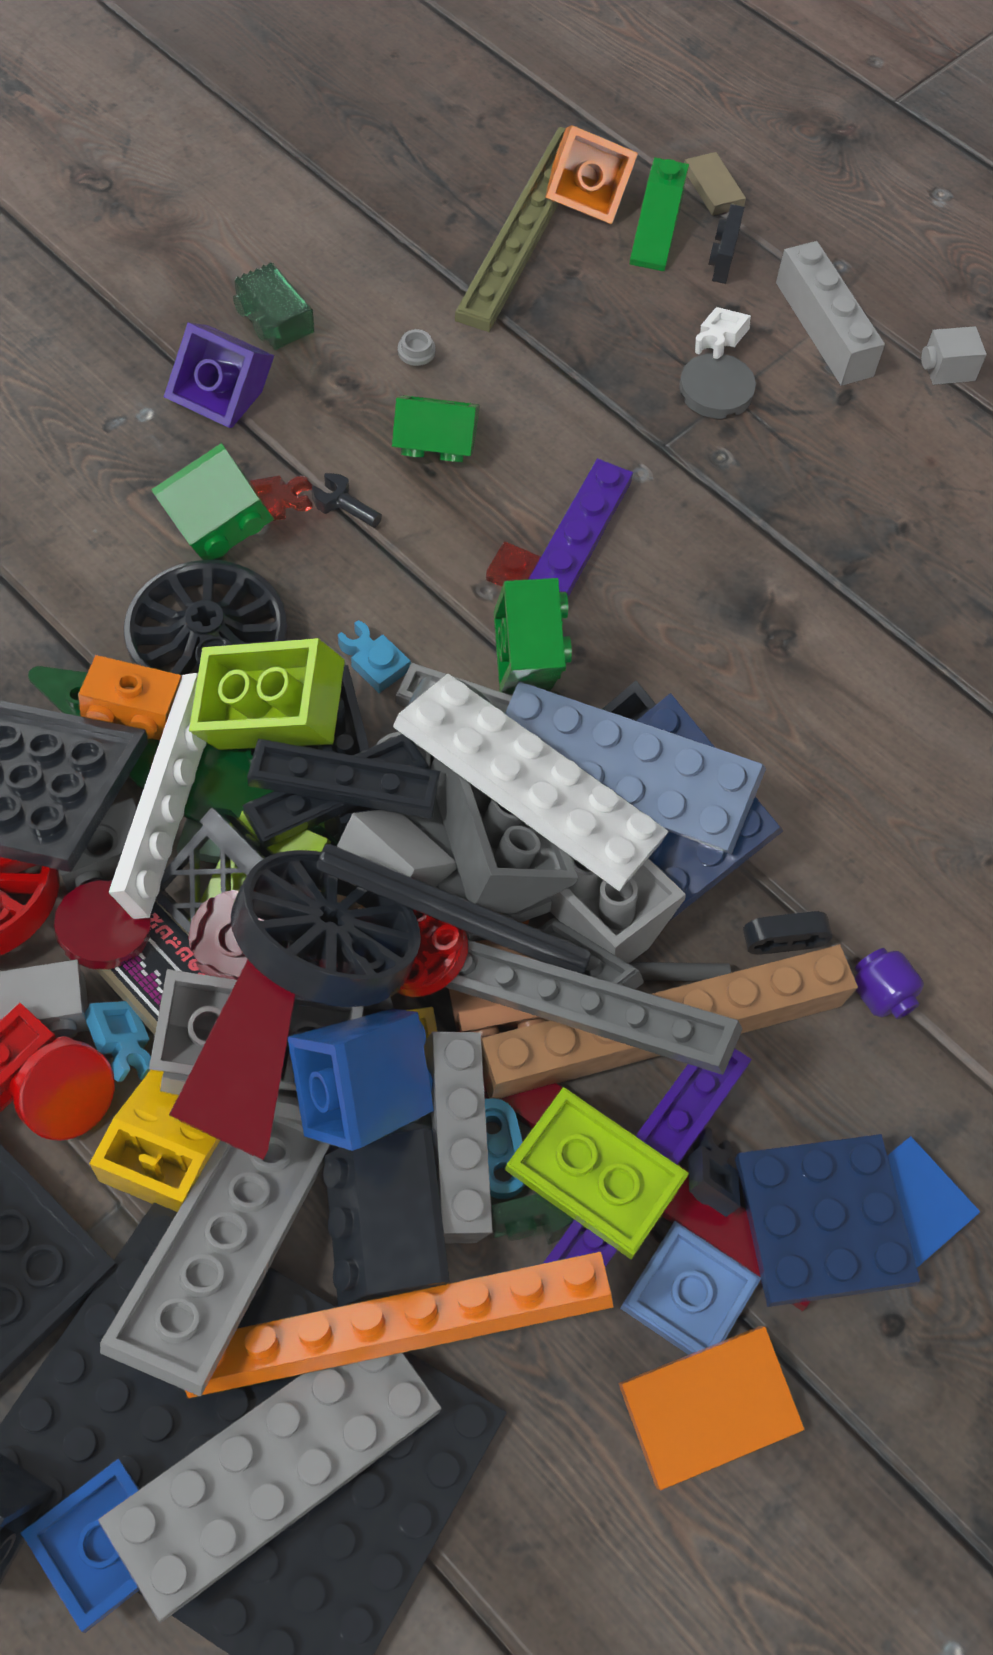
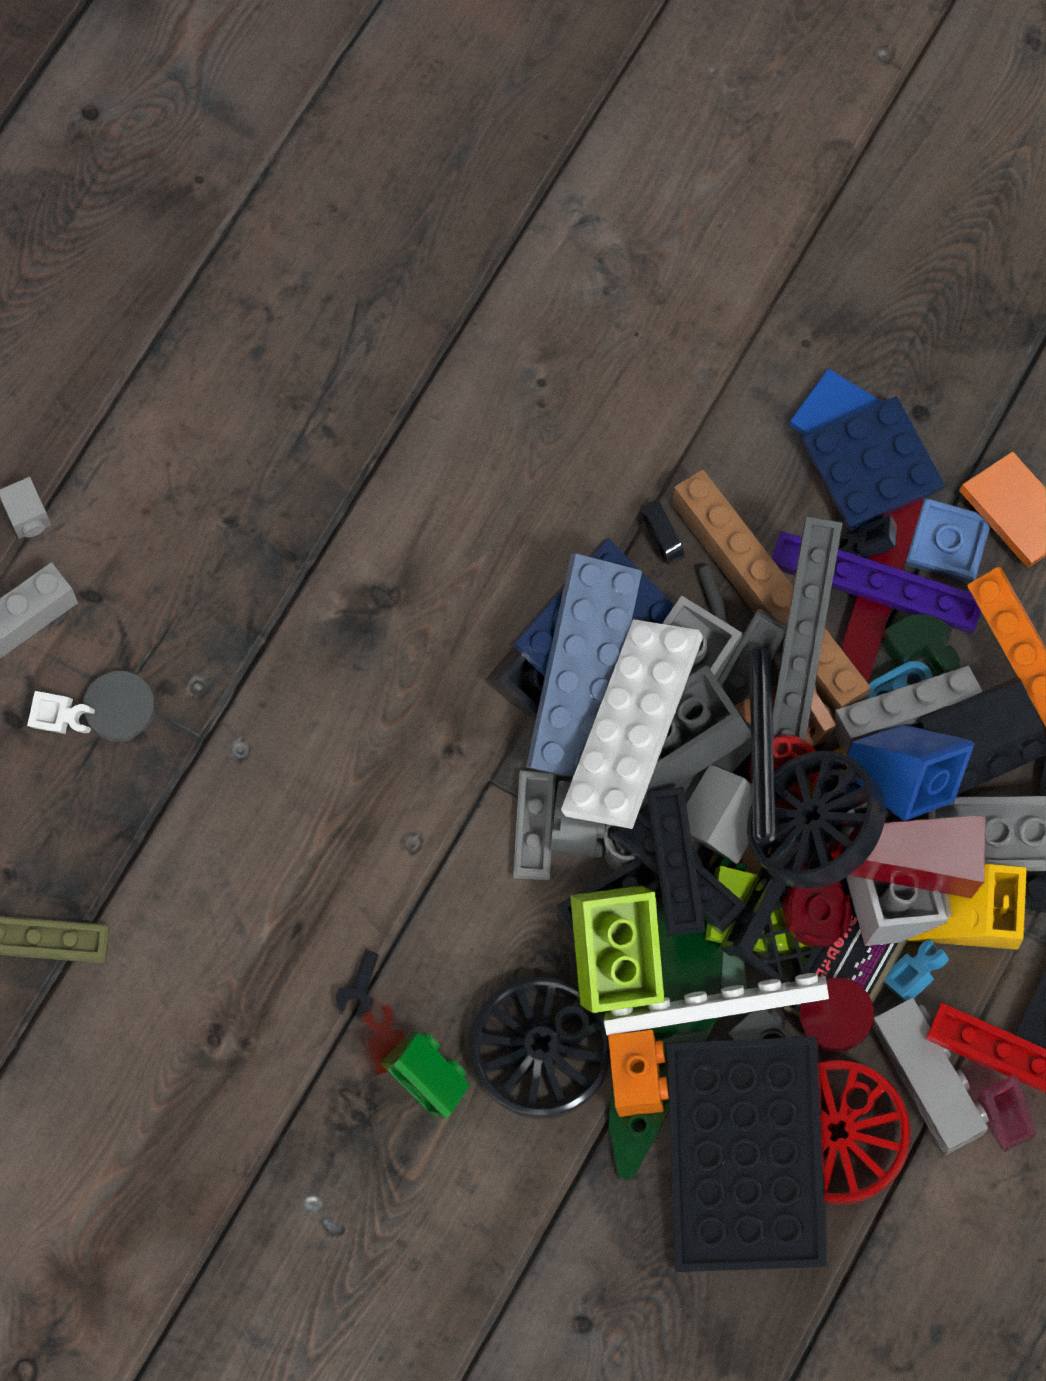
camera: 100 degrees left, 10 degrees up
(63, 1089) = (970, 989): red tile -> none
(217, 374) = (256, 1144): dark purple slope -> none
(273, 306) = (156, 1126): clear green brick -> none
(375, 660) = (516, 904): dark azure plate -> none
(416, 348) = (161, 981): light grey plate -> none
(435, 426) = (252, 931): green slope -> none
(511, 564) = (385, 824): clear red plate -> none
(531, 634) = (492, 766): green brick -> none
(583, 525) = (355, 784): dark purple plate -> none
(597, 1172) = (902, 610): lime tile -> none
(888, 983) = (678, 455): dark purple head -> none

